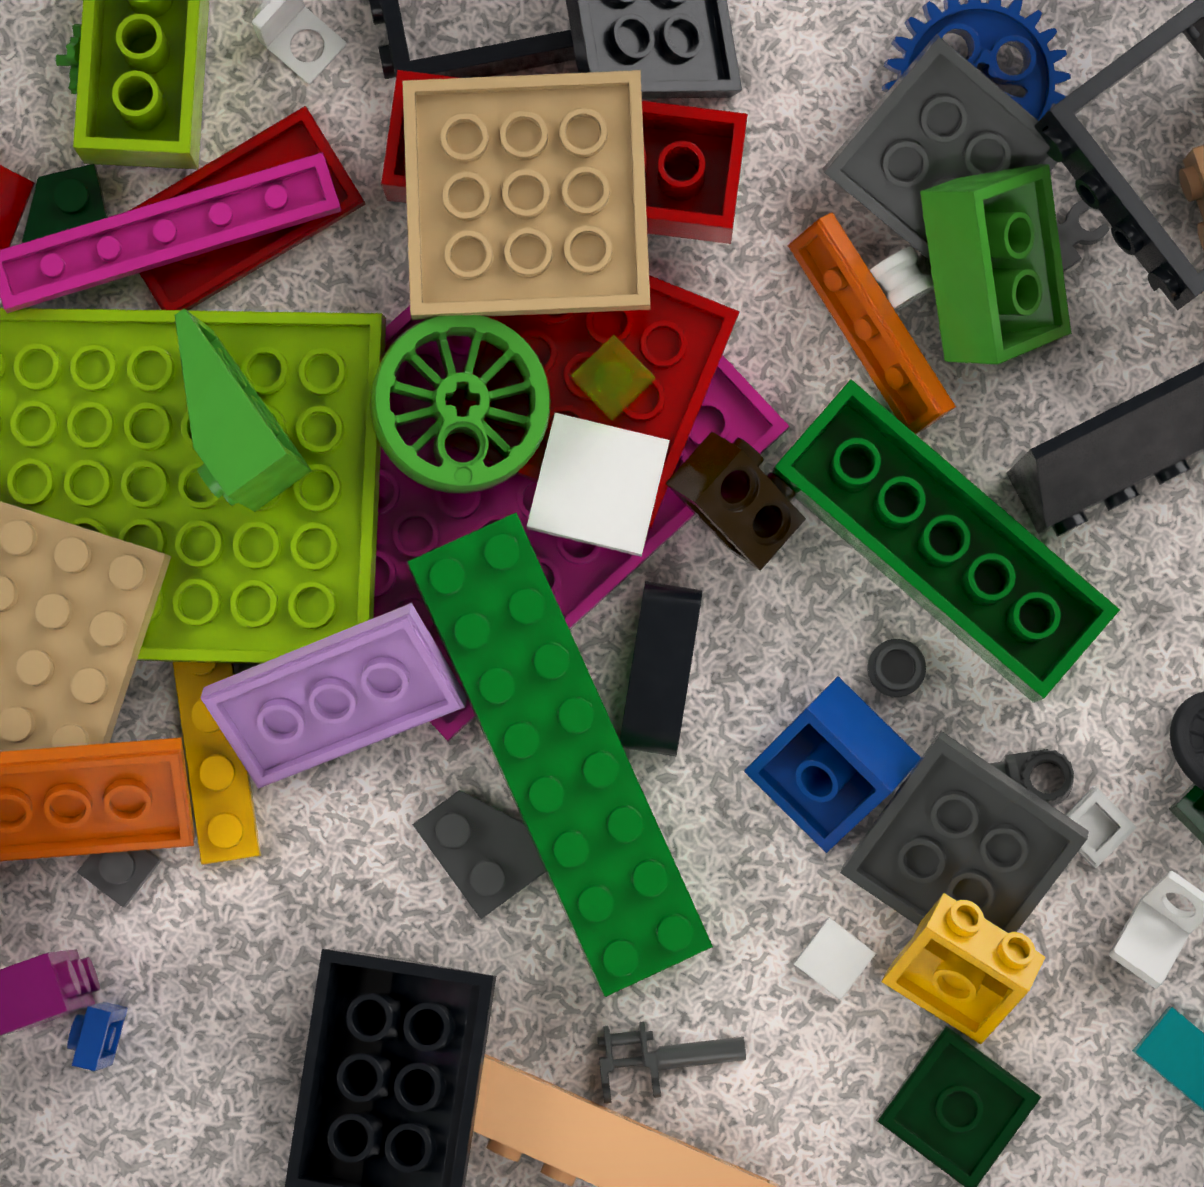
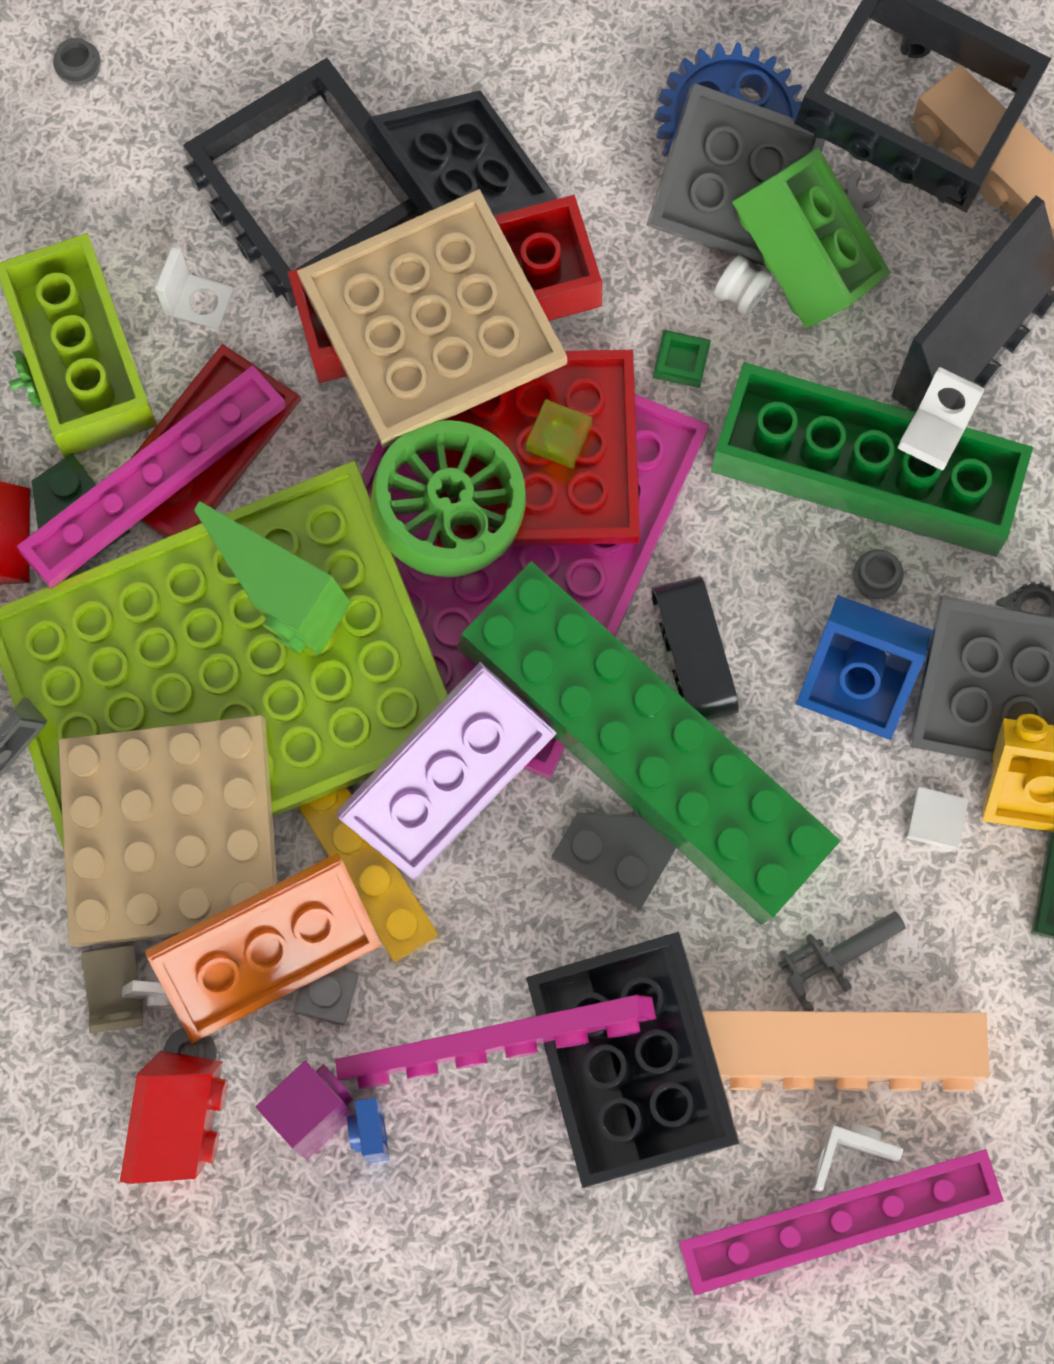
camera: 20 degrees left, 10 degrees down
(281, 1010) = (516, 1038): none -> dark pink plate
(598, 484) = (584, 520): white tile -> none
(737, 499) = (696, 491): dark brown brick -> none
(796, 334) = (681, 358): none -> green tile
(871, 324) = (733, 322): orange tile -> none
(1022, 546) = (936, 428): none -> white bracket

